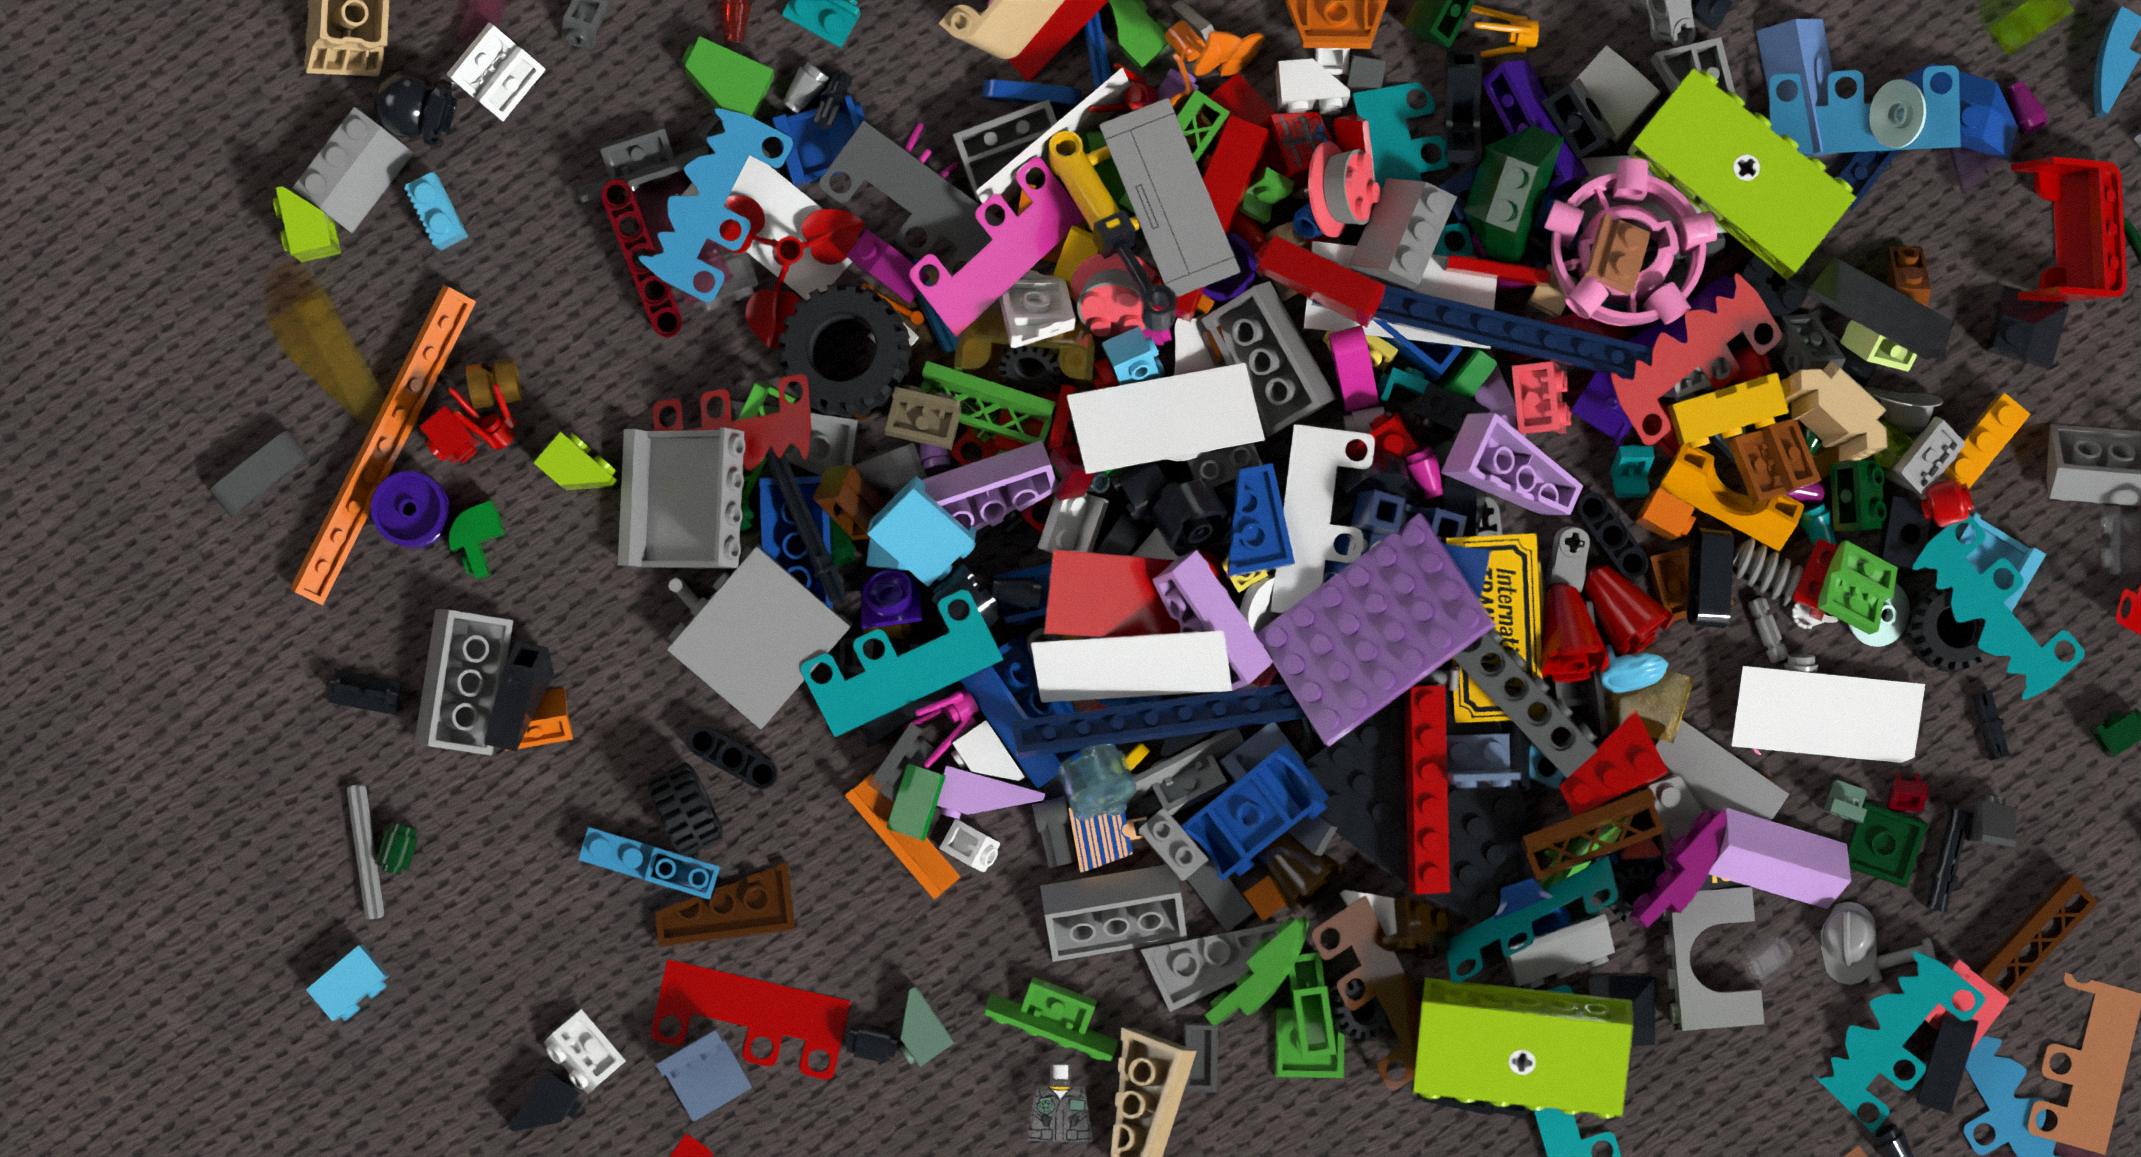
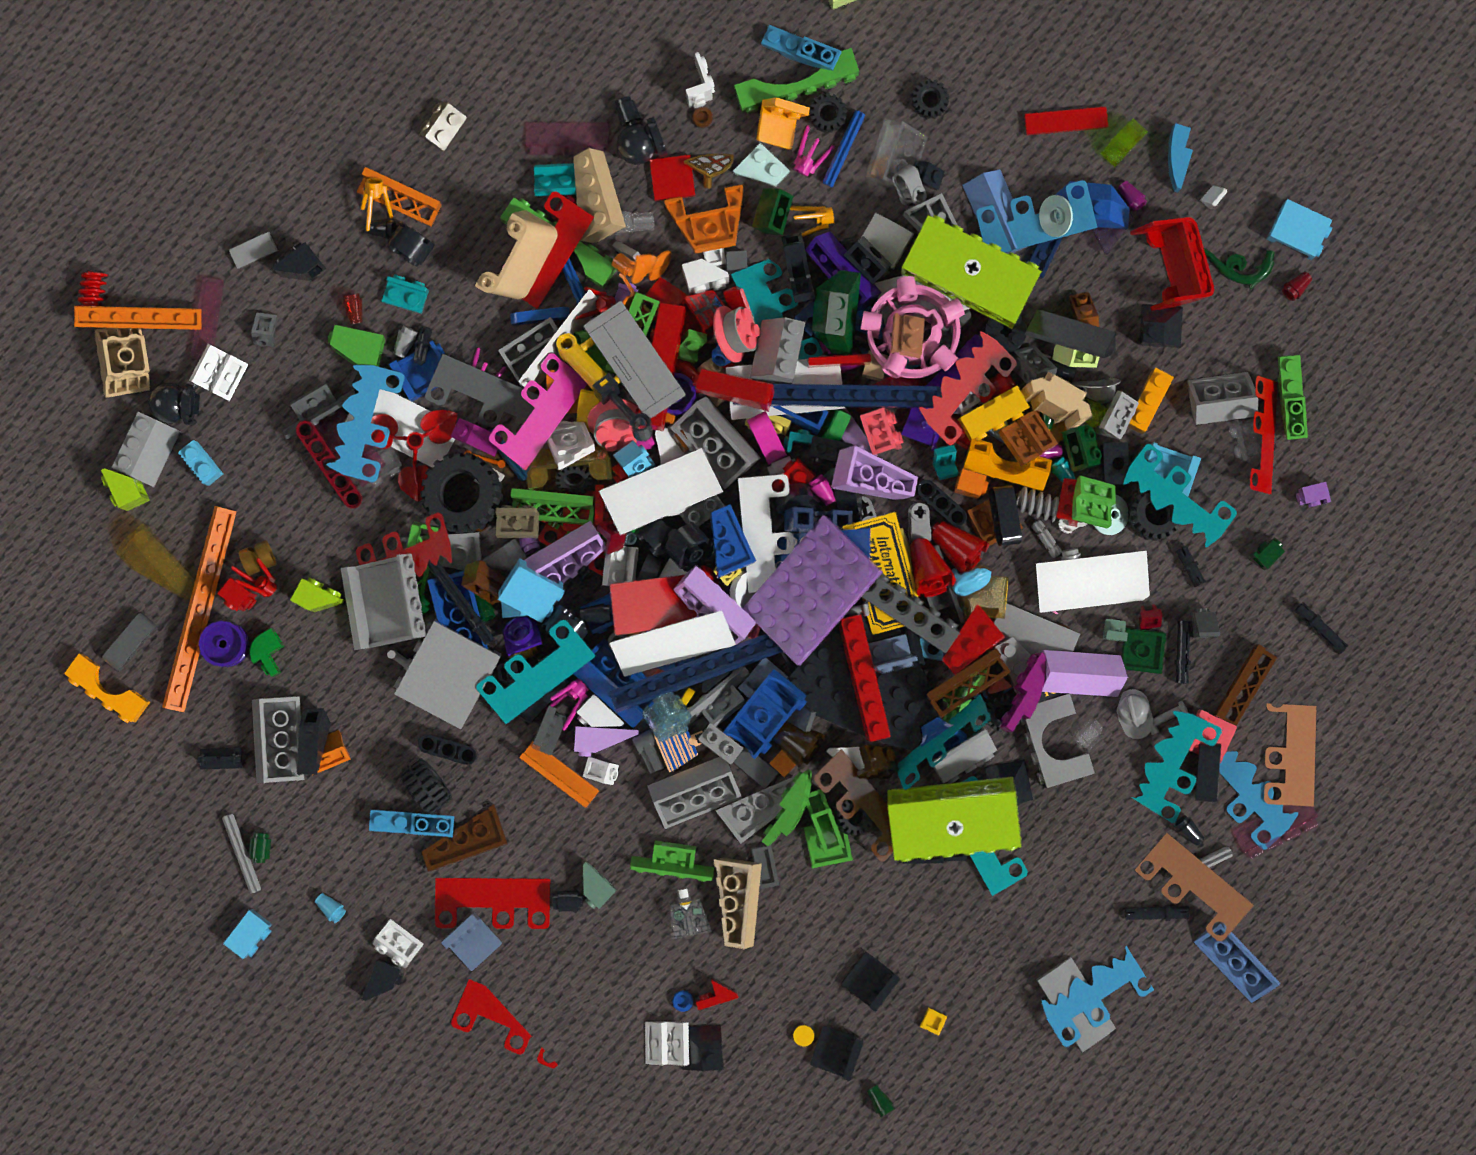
camera: 10 degrees left, 0 degrees up
(179, 508) = (86, 674): none -> light orange arch
(489, 970) = (331, 909): none -> medium azure cone
(915, 801) = (562, 752): green slope -> none
(1947, 502) = (1136, 440): red head -> none

